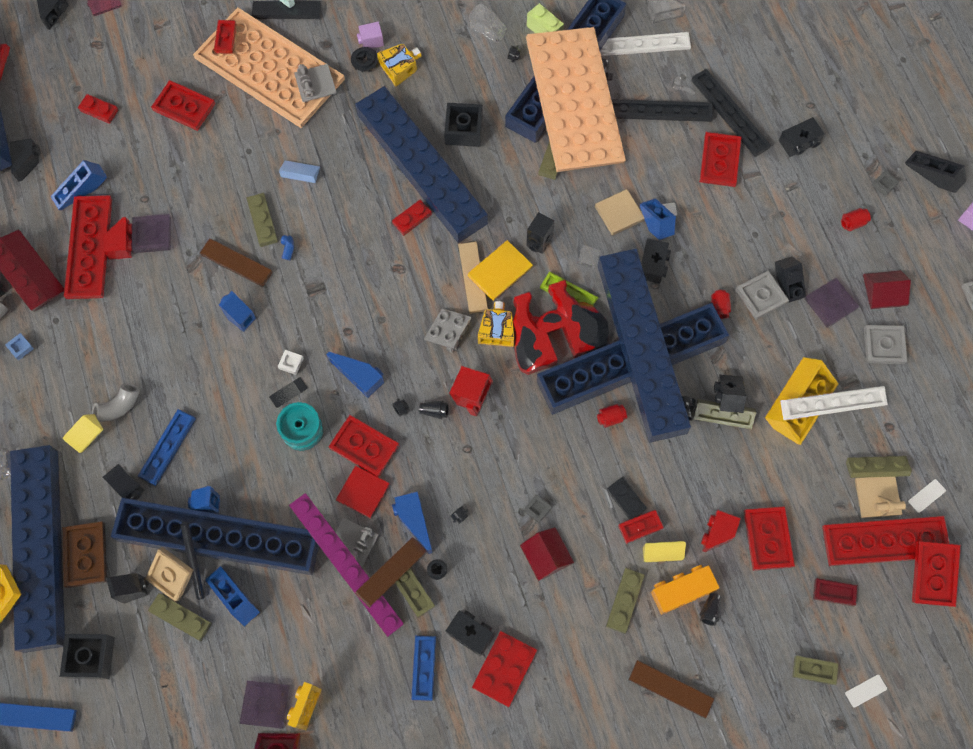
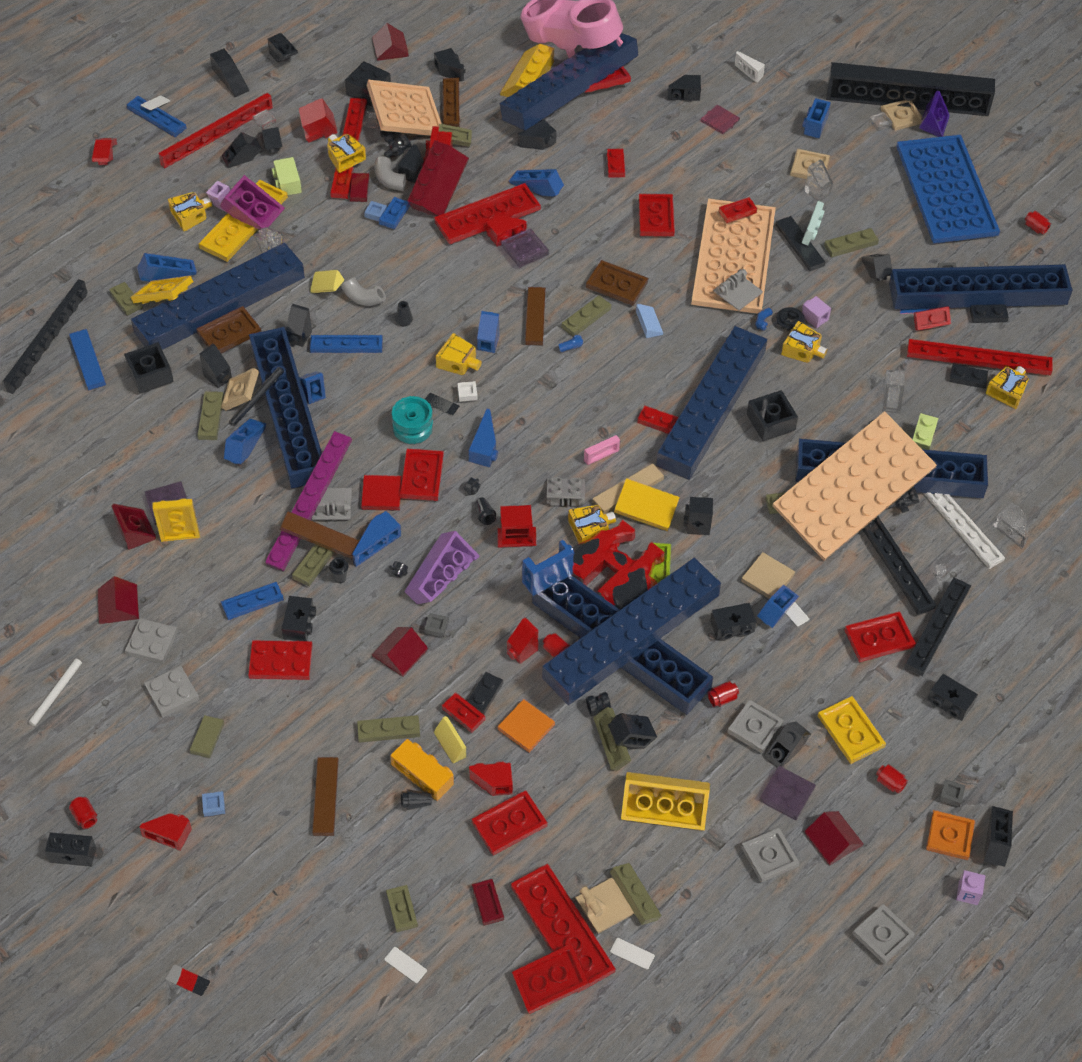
camera: 60 degrees right, 15 degrees down
(32, 330) = (394, 213): none -> blue plate
(167, 378) = (403, 314): none -> black cone
(241, 175) = (617, 282): none -> reddish brown plate
(245, 351) = (457, 356): none -> yellow torso
(355, 85) = (760, 321): none -> blue arm
(422, 275) = (601, 450): none -> bright pink tile
(479, 478) = (441, 566): none -> medium lavender wedge
(549, 400) = (548, 572): none -> blue panel
(596, 441) = (523, 641): none -> red slope
(676, 479) = (526, 725): none -> orange tile
(797, 225) = (851, 729): none -> yellow plate
(833, 403) = (675, 823): white tile -> none
(918, 204) = (950, 835): none -> orange tile

